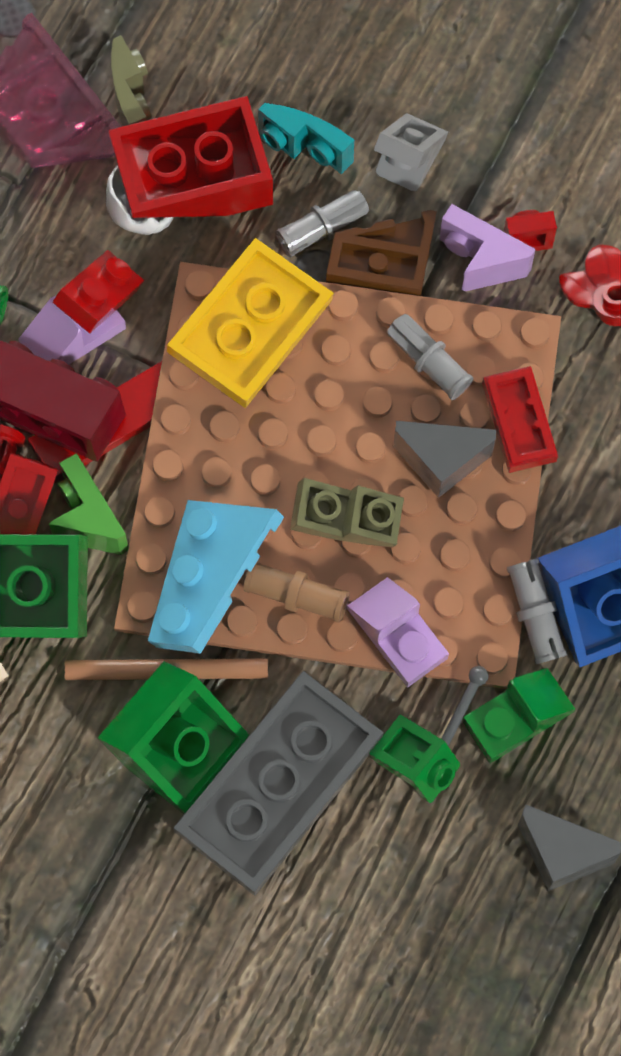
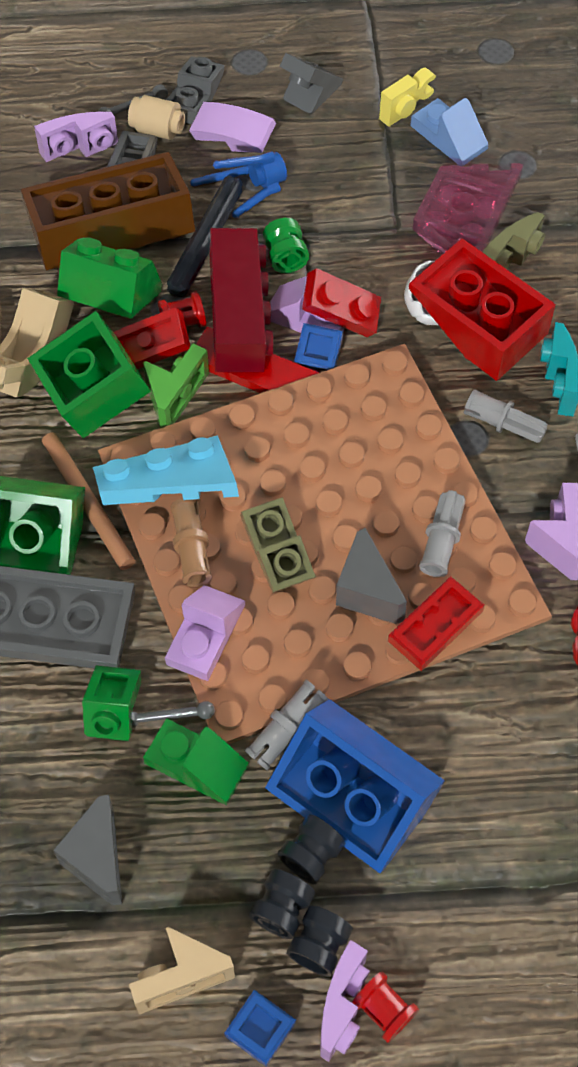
camera: 60 degrees right, 10 degrees down
(128, 345) = (318, 347): none -> blue tile
(249, 322) = (383, 401): yellow plate -> none
(383, 255) = (508, 469): reddish brown wing -> none

